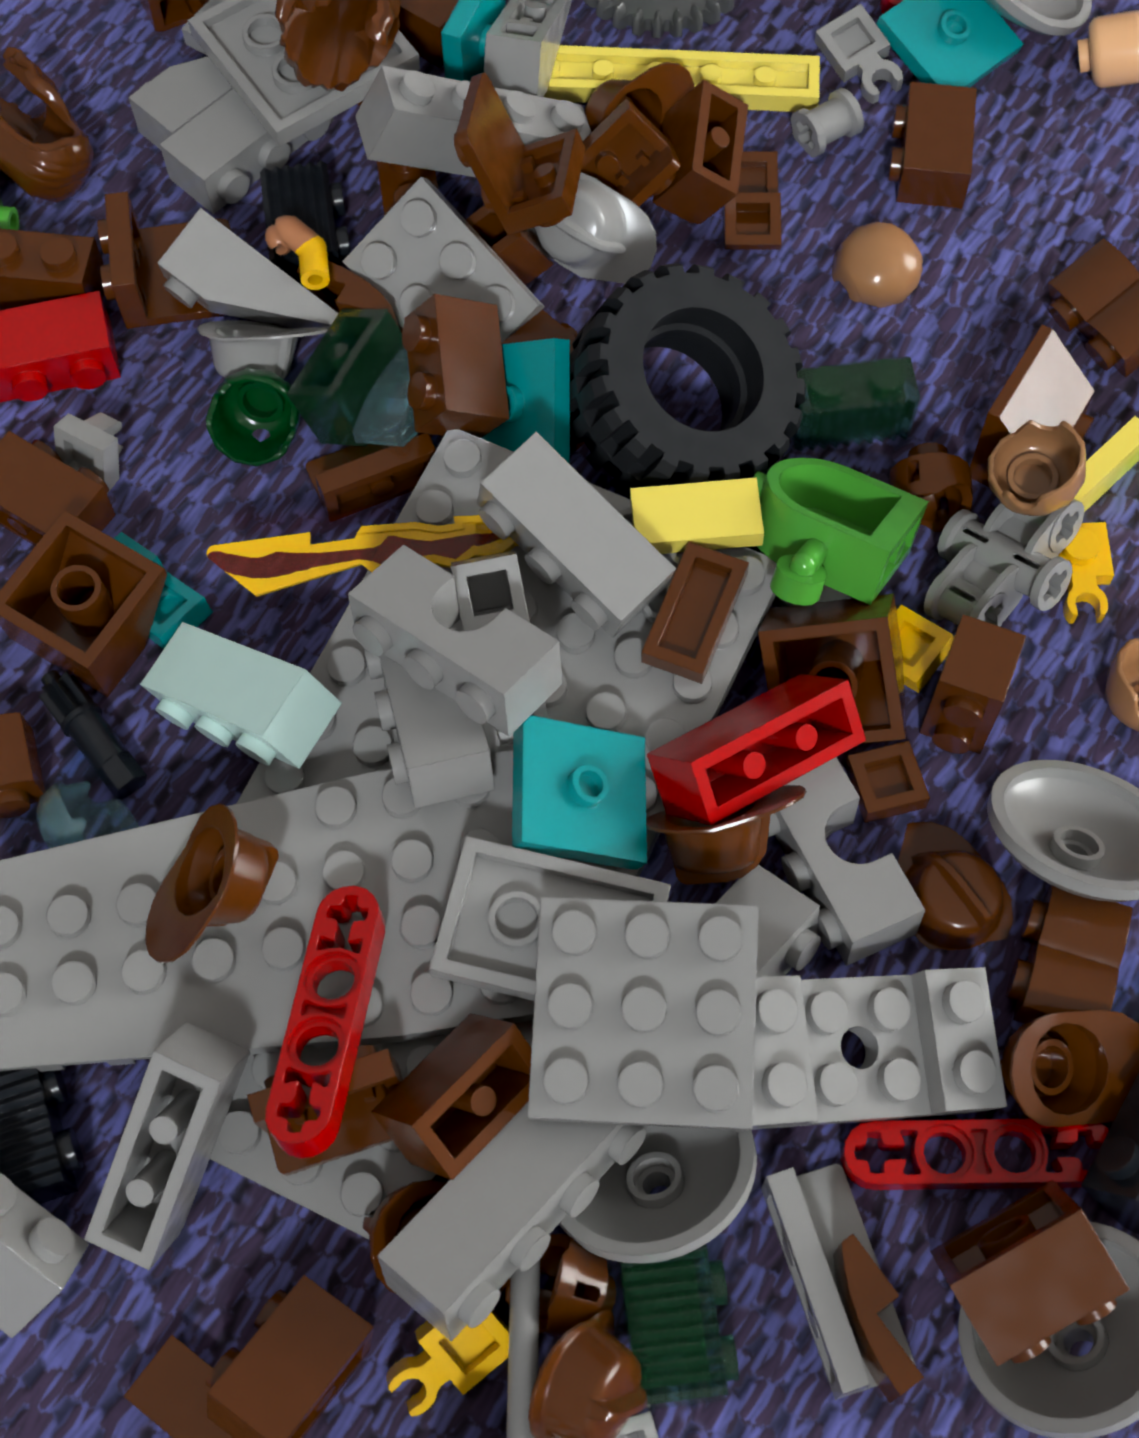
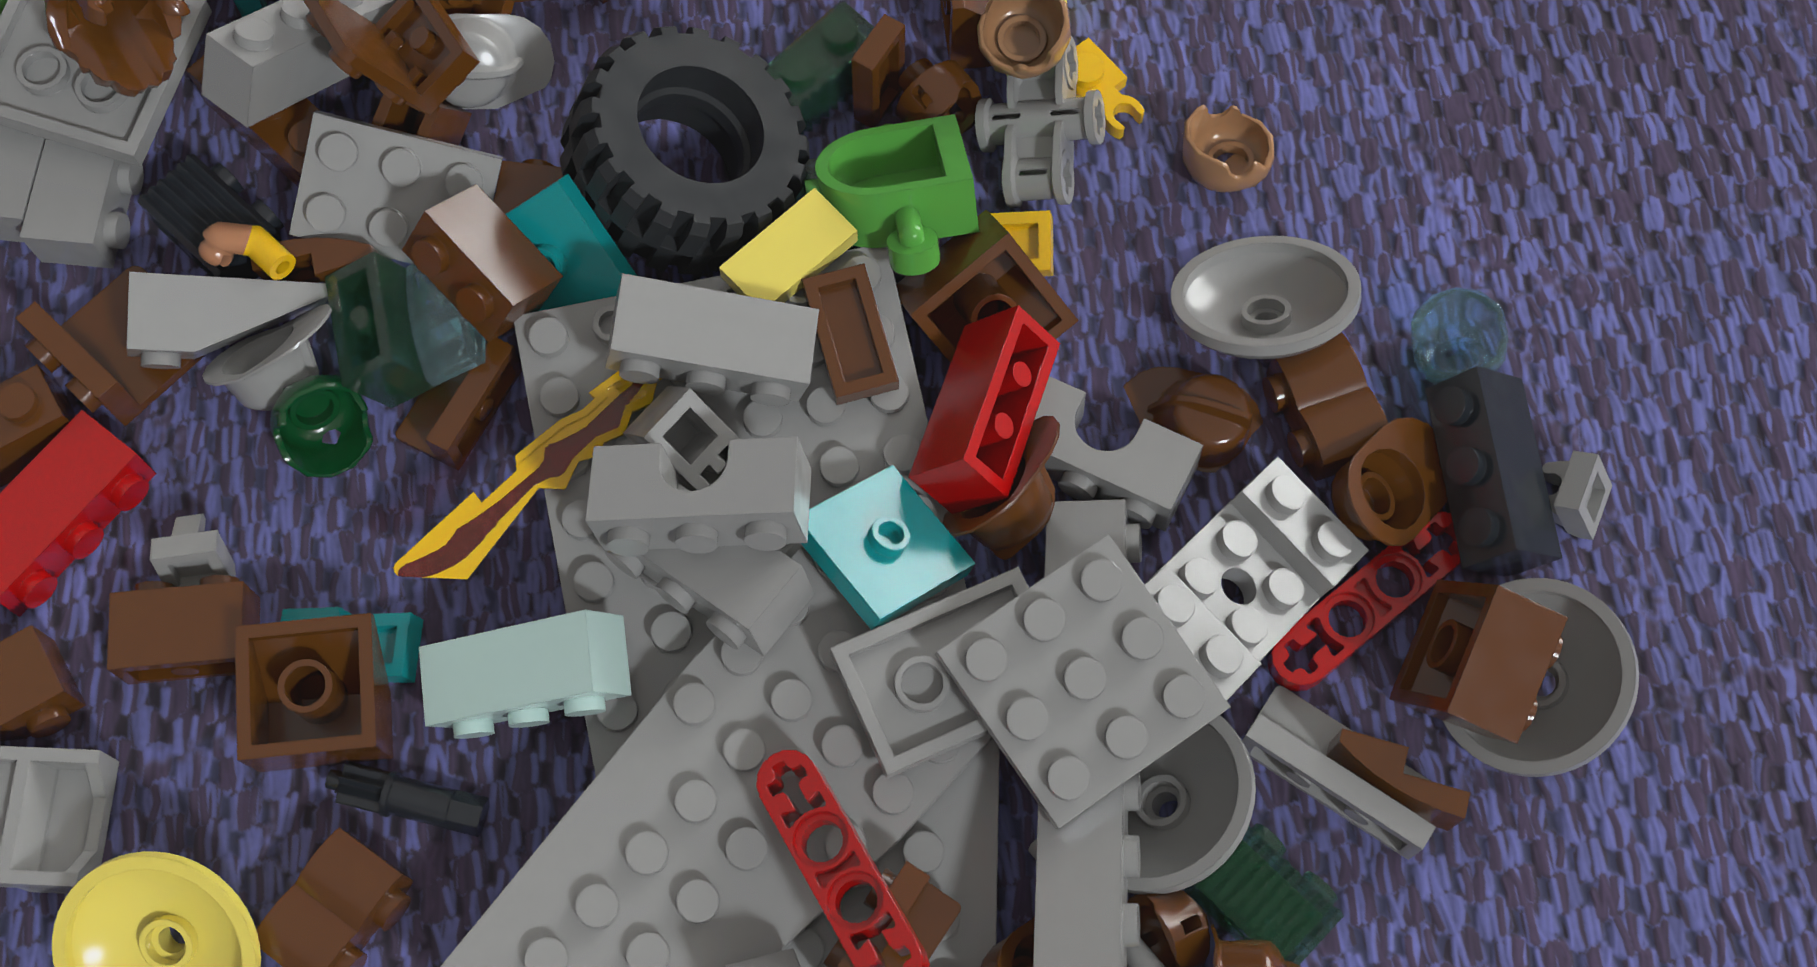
camera: 40 degrees left, 5 degrees up
(70, 816) = (472, 880): clear light blue hair -> none
(211, 884) = (651, 843): reddish brown piece -> none
(459, 1095) = (984, 853): reddish brown brick -> none
(887, 781) = (1089, 362): reddish brown plate -> none
(893, 427) = (877, 71): none -> reddish brown tile
(972, 685) = (1100, 242): reddish brown brick -> none

